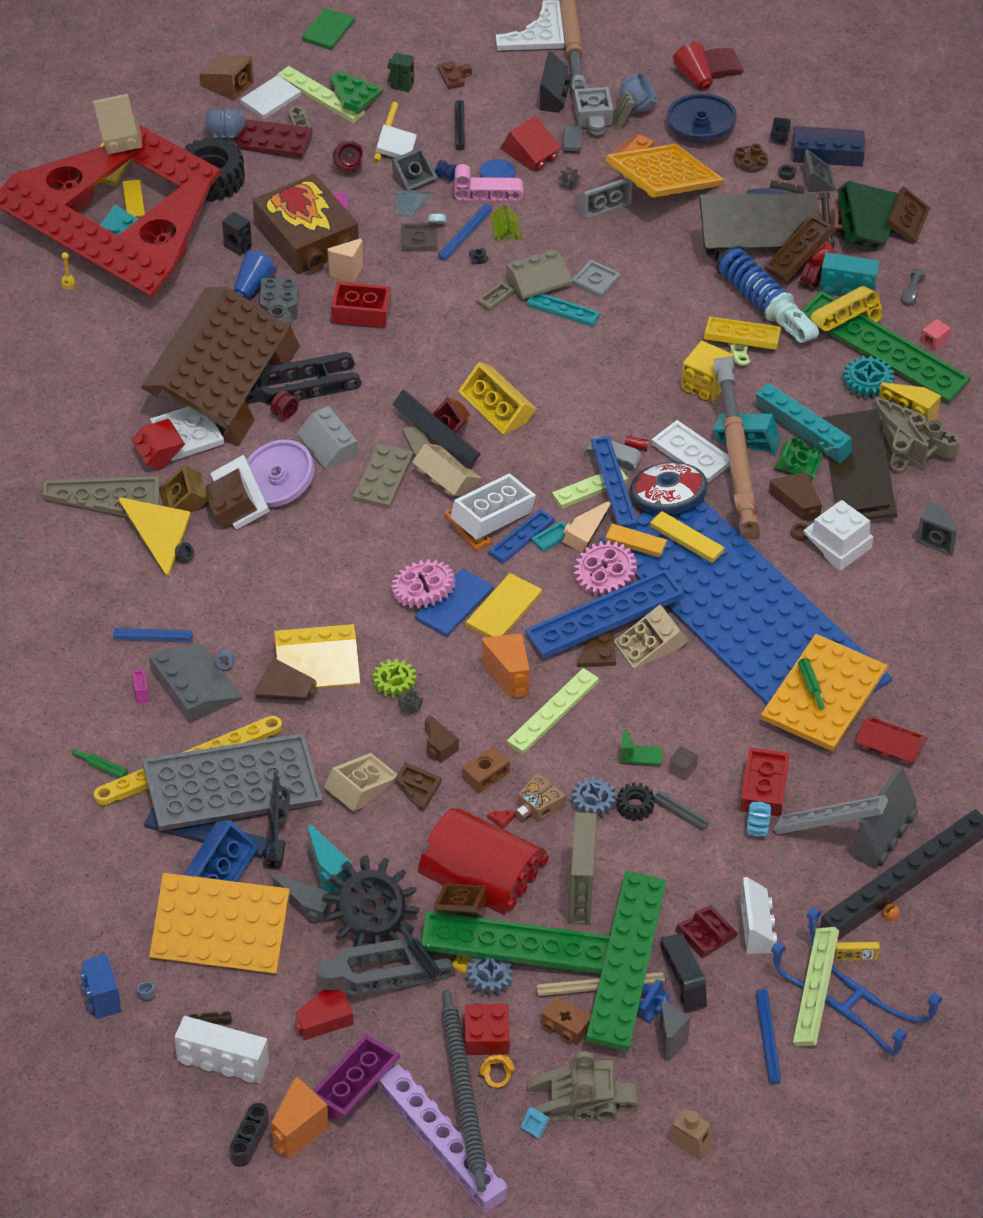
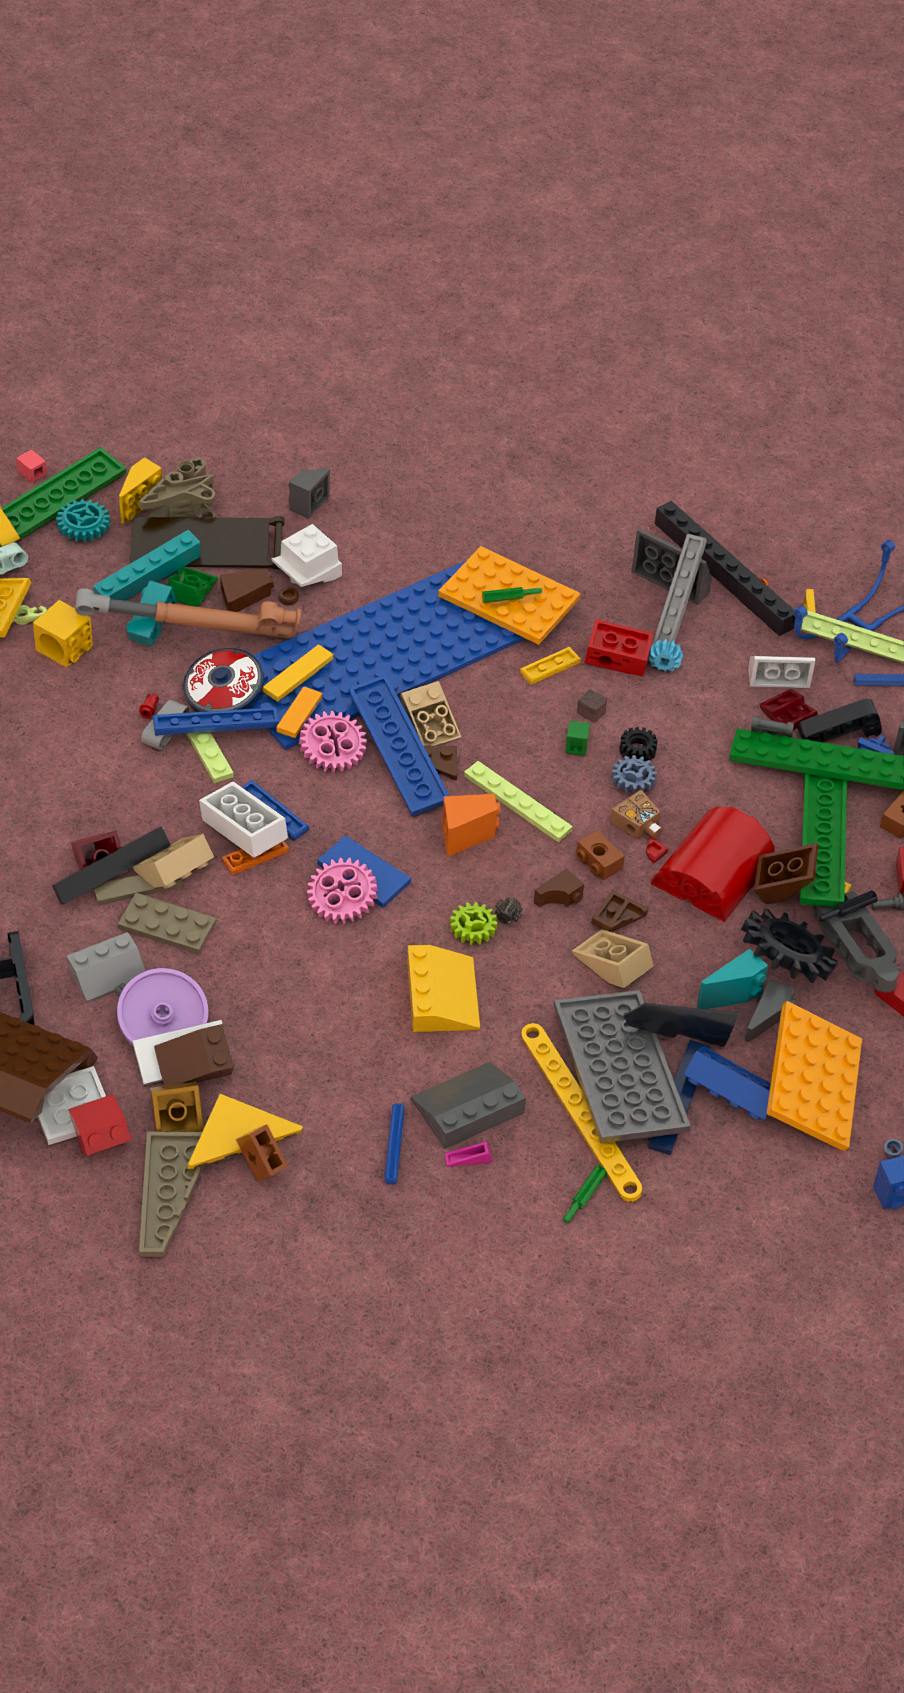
camera: 90 degrees left, 0 degrees up
(130, 540) = (262, 1152): none -> dark orange brick
(184, 552) = (272, 1108): black tile -> none
(226, 665) = (440, 1072): sand blue bush -> none
(284, 405) = (49, 1004): dark red wheel -> none
(285, 683) = (483, 1016): reddish brown slope -> none
(489, 975) = (859, 867): sand blue gear -> none
(496, 399) = (66, 814): yellow slope -> none
(504, 607) = (374, 830): yellow tile -> none
(550, 537) = (275, 785): teal tile -> none
(582, 868) = (750, 744): dark tan window -> none
(583, 527) = (271, 752): light nougat slope -> none
(585, 985) = (859, 806): tan axle -> none
(666, 906) = (772, 727): none -> dark grey plate
(681, 810) = (647, 713): dark grey axle -> none
(690, 448) = (166, 663): white plate -> none
(738, 731) = (550, 665): none -> yellow tile
(890, 740) = (565, 557): red slope -> none

